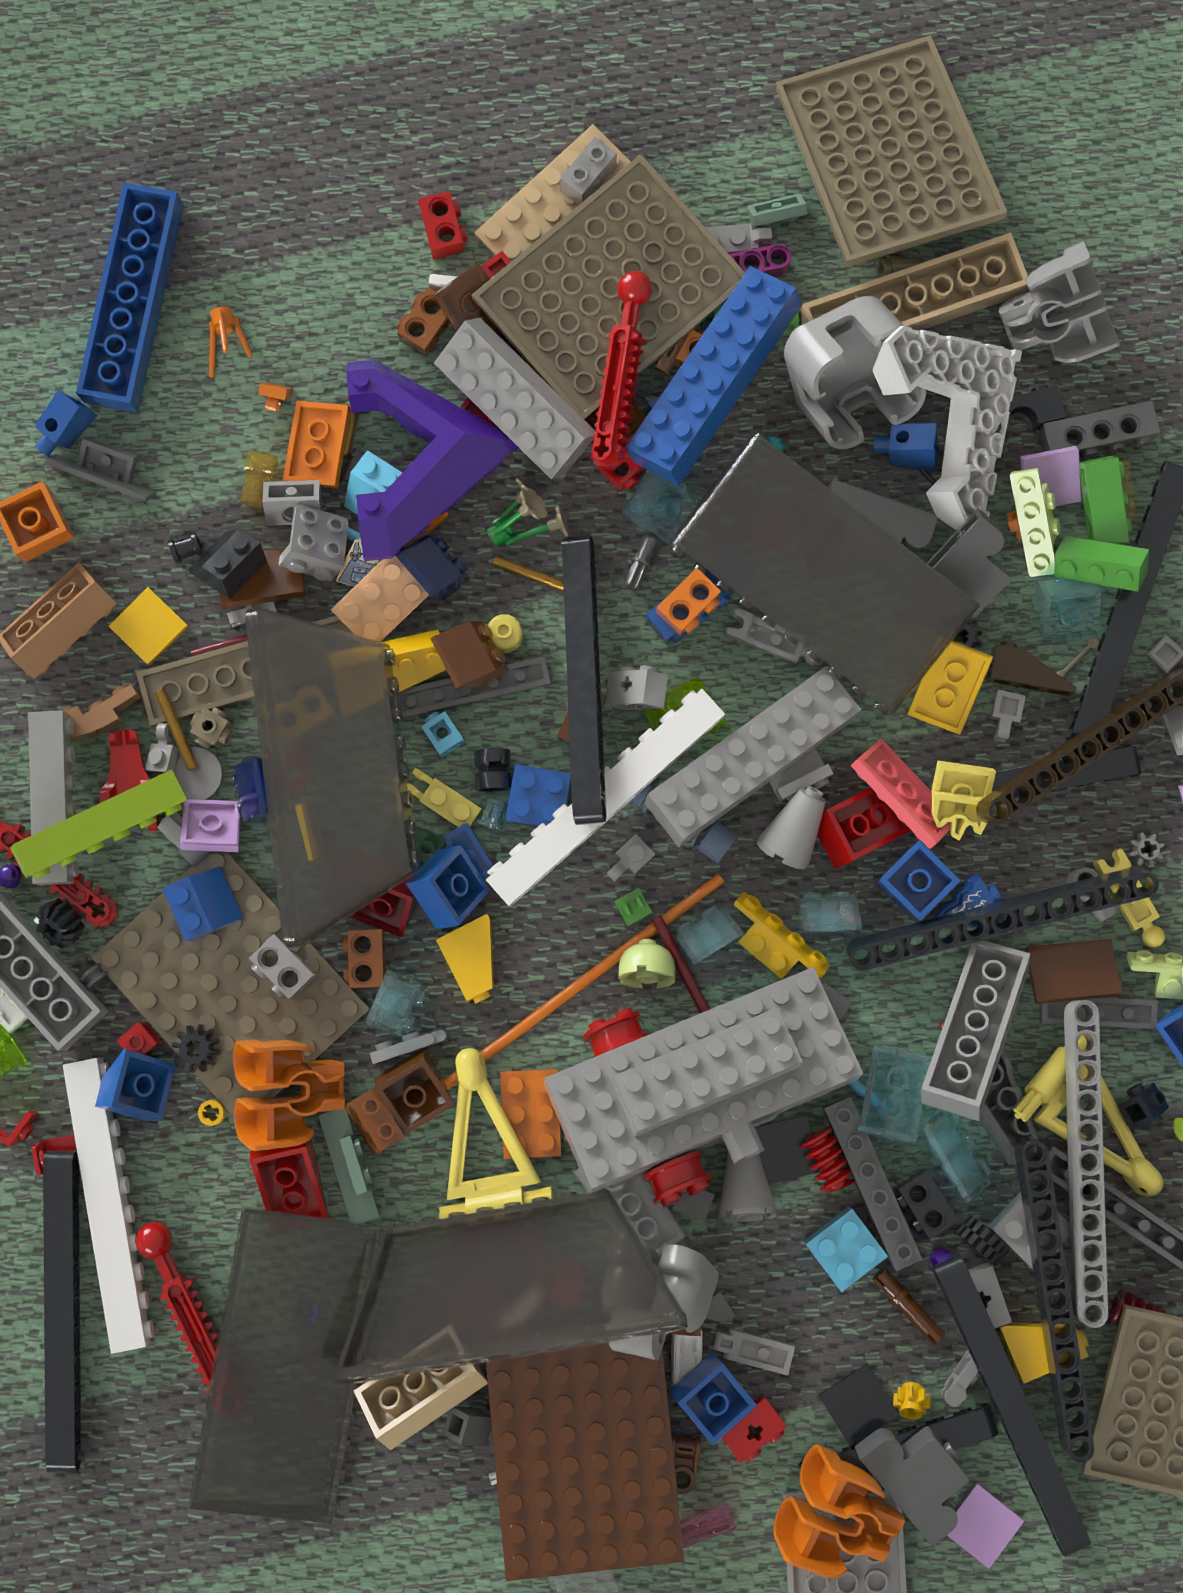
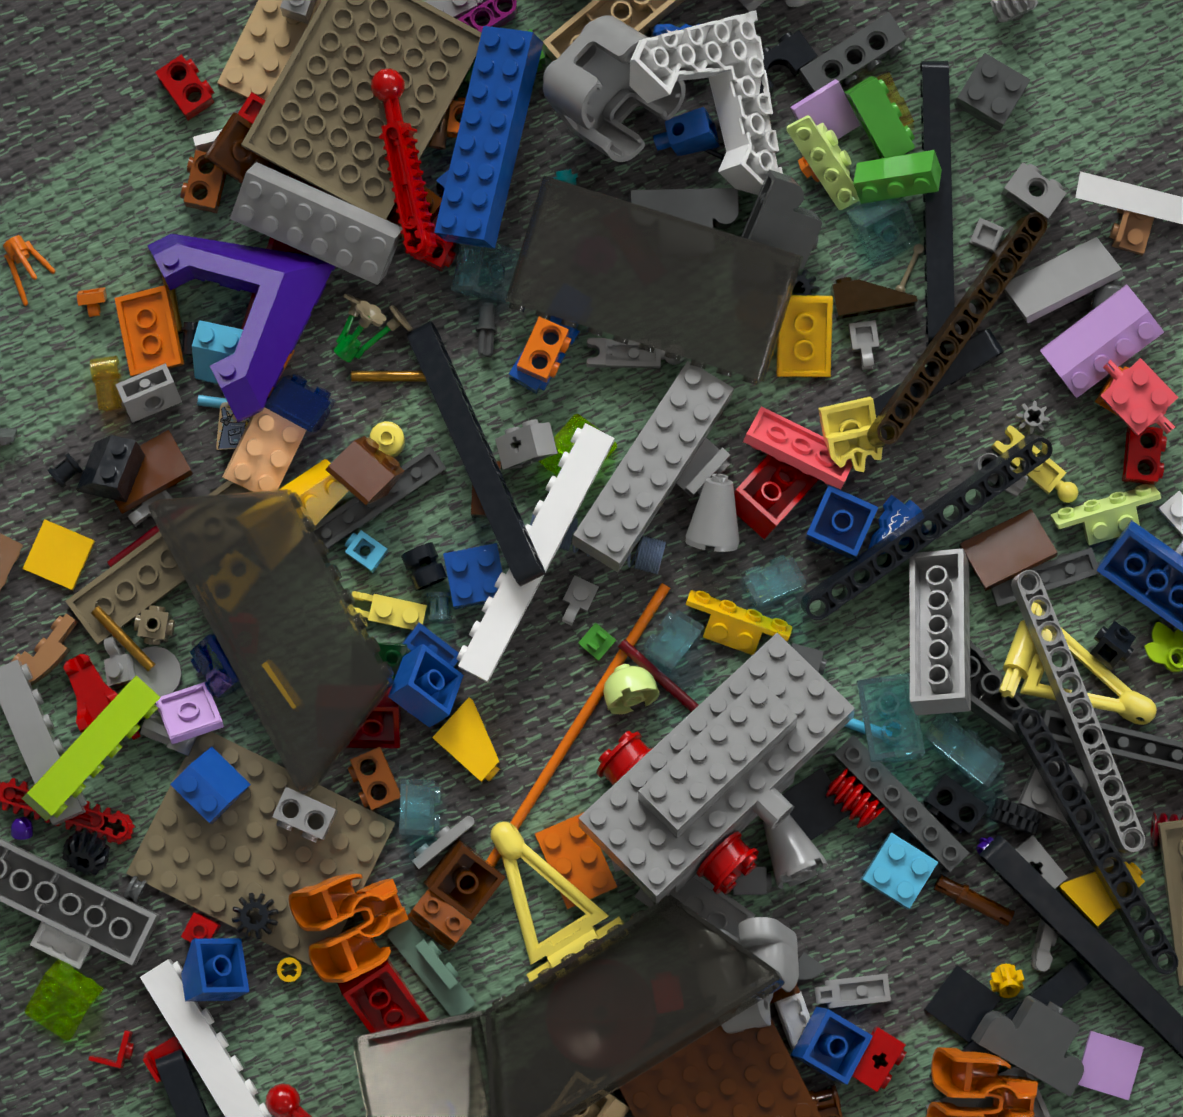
camera: 30 degrees left, 0 degrees up
(316, 543) = (186, 422): light grey bracket -> none

